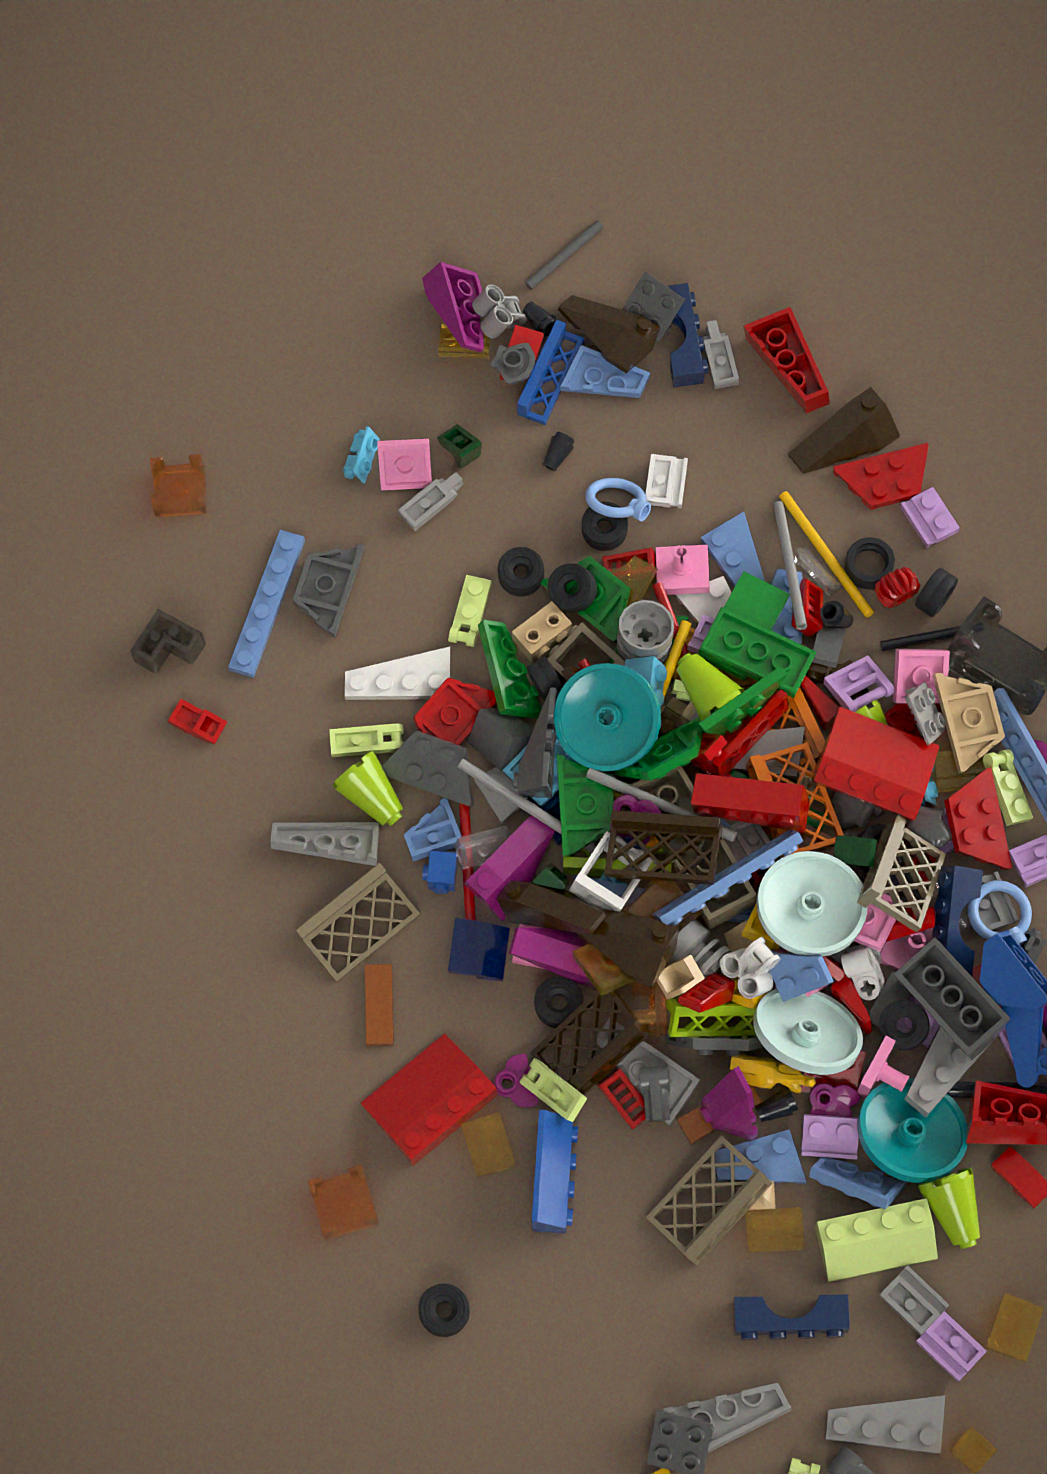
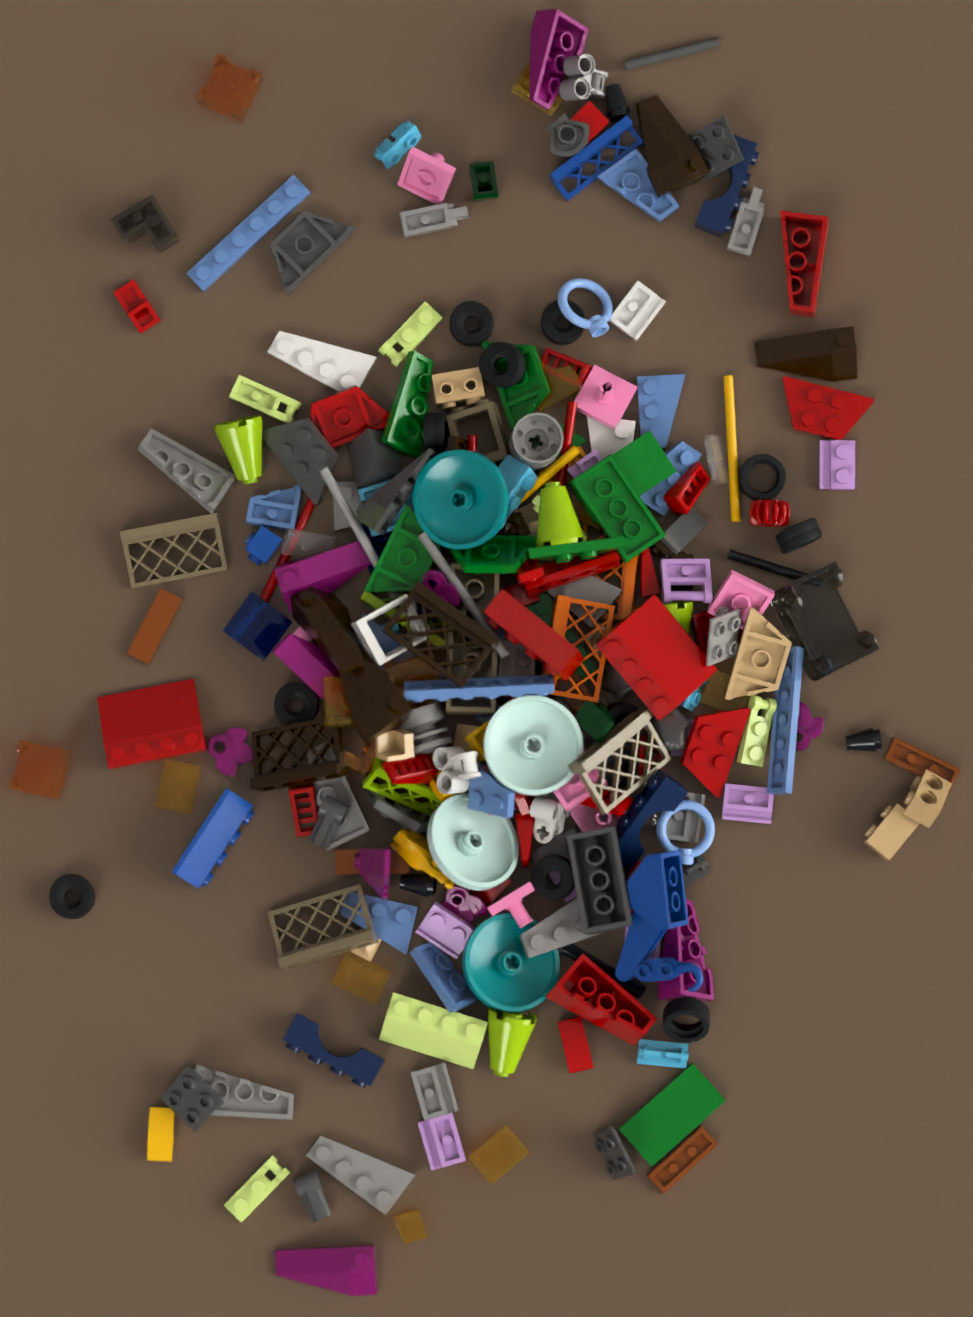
camera: 20 degrees right, 15 degrees up
(552, 877) = (345, 602): dark green slope -> none
(553, 1090) = (248, 775): yellowish green plate -> none
(558, 450) = (562, 233): black cone -> none
(790, 565) = (692, 445): light grey piece -> none
(835, 615) = (704, 509): black cone -> none

